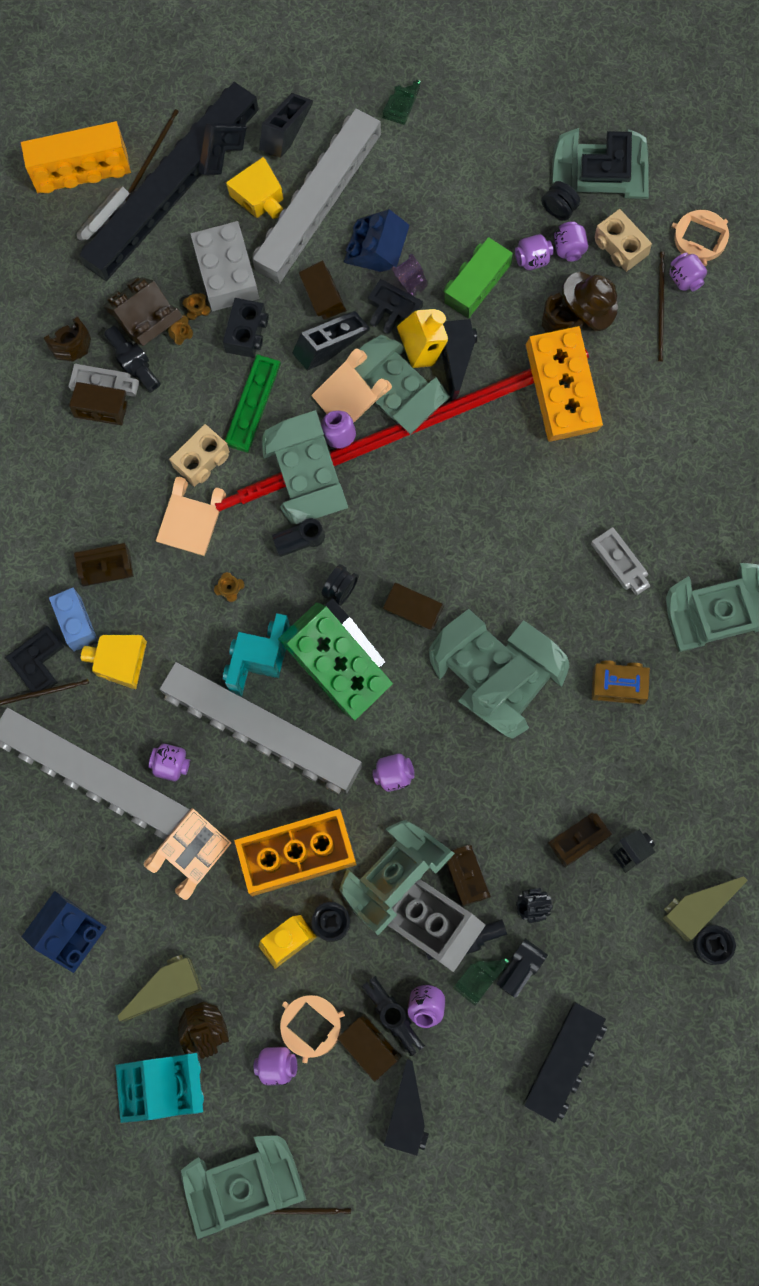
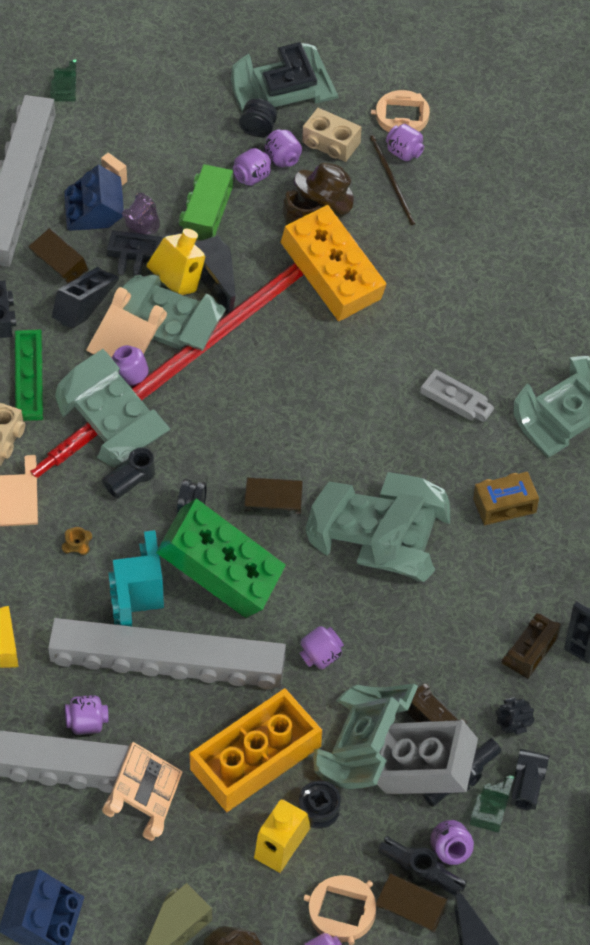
camera: 30 degrees left, 20 degrees down
(407, 213) = (115, 166): none -> light nougat plate

